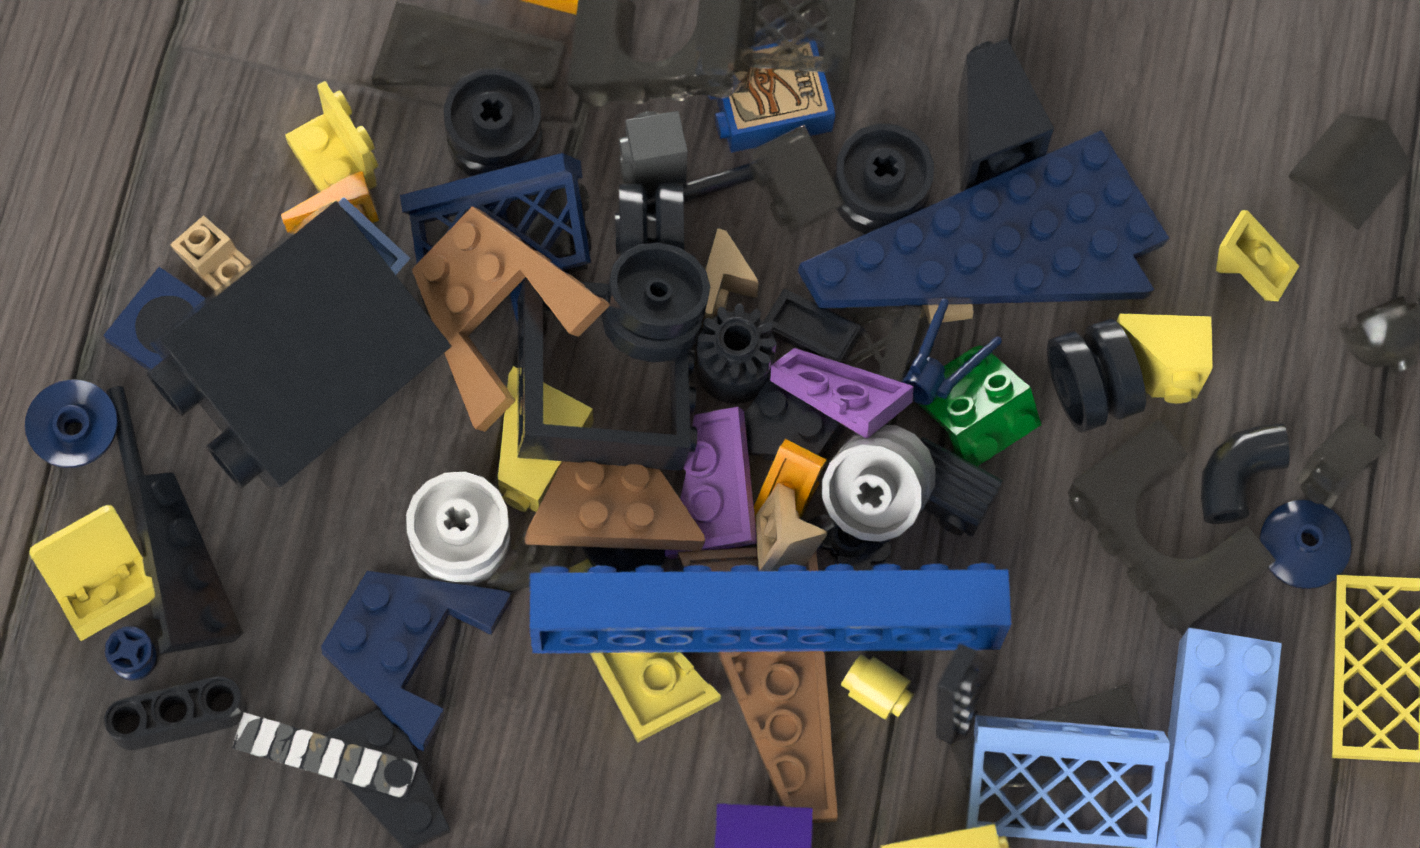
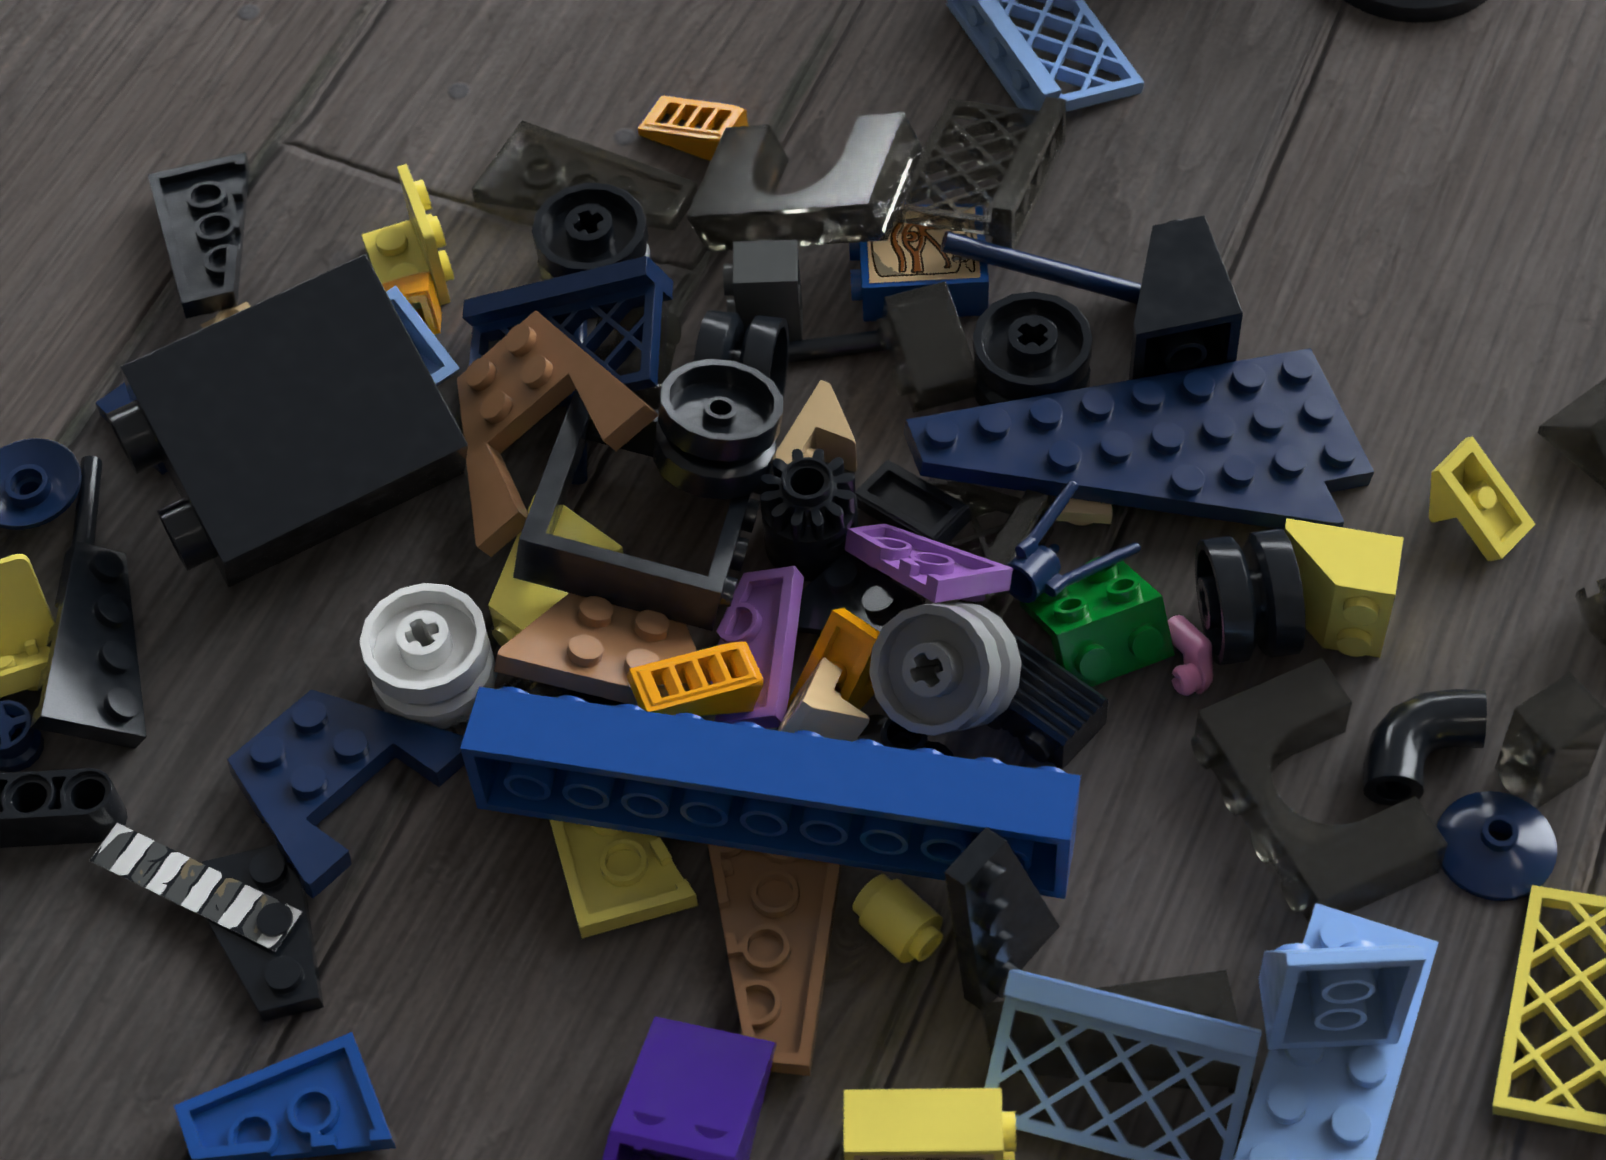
camera: 20 degrees right, 15 degrees down
(143, 146) = (204, 229): none -> black wing
(712, 512) = (728, 666): none -> light orange slope
(875, 91) = (1040, 267): none -> dark blue bar
(1060, 425) = (1196, 648): none -> bright pink arm
(1223, 705) = (1338, 994): none -> light blue slope

